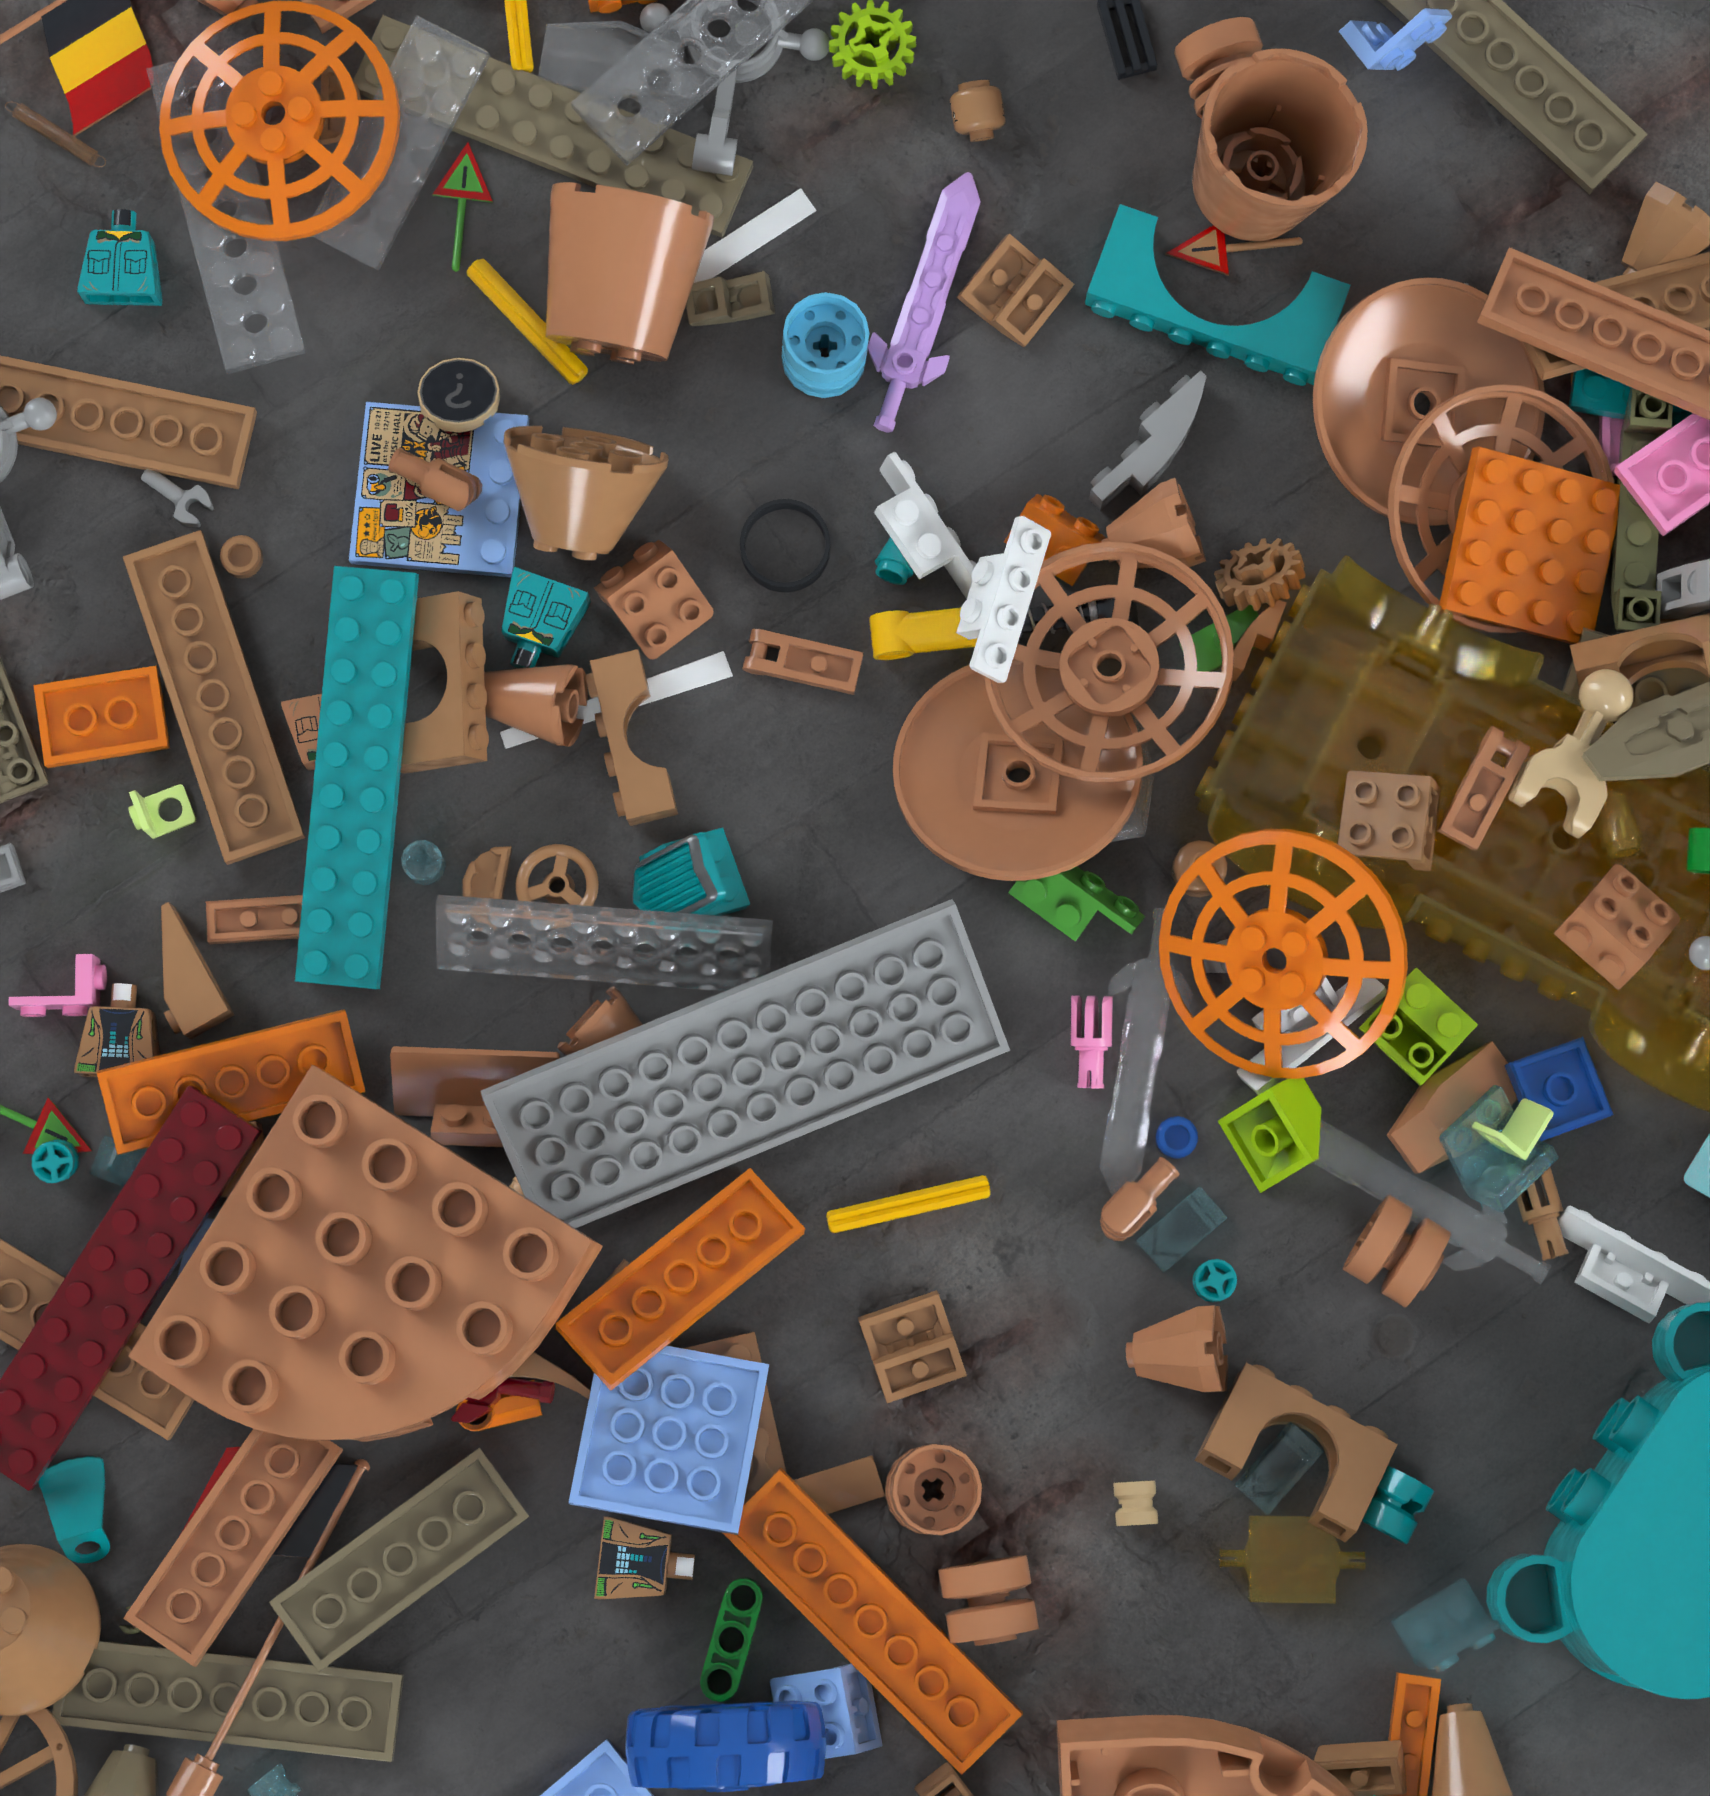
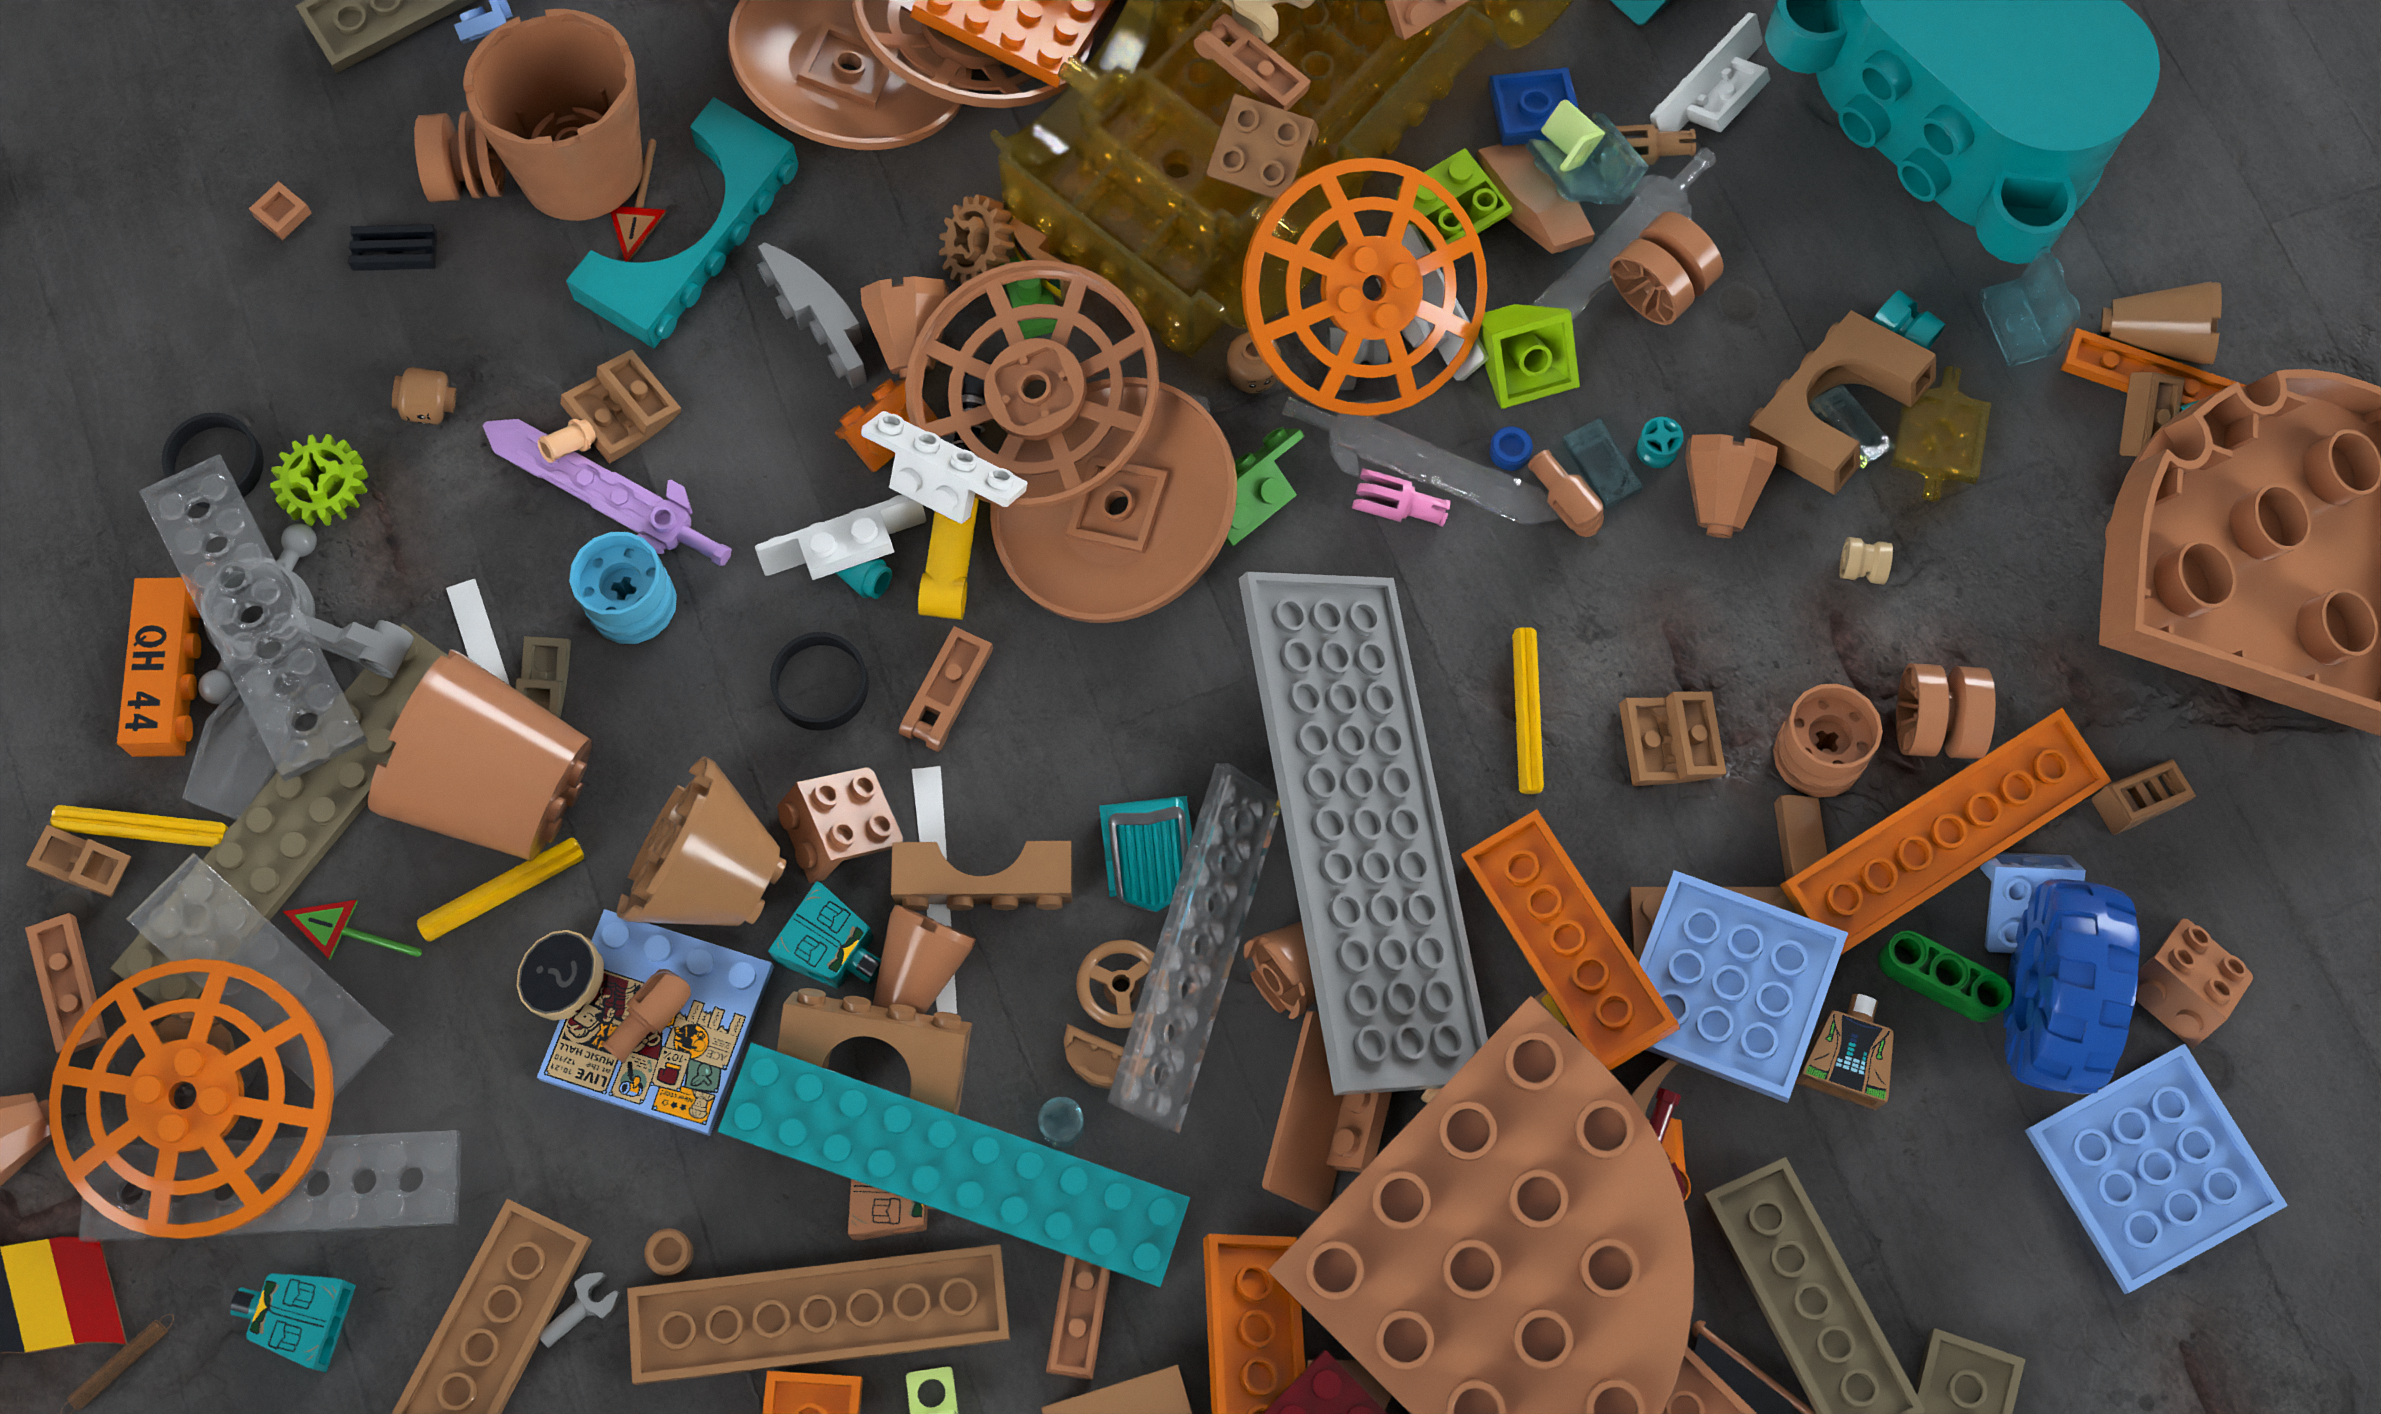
camera: 80 degrees left, 10 degrees down
(962, 252) = (576, 436): none -> light nougat pin

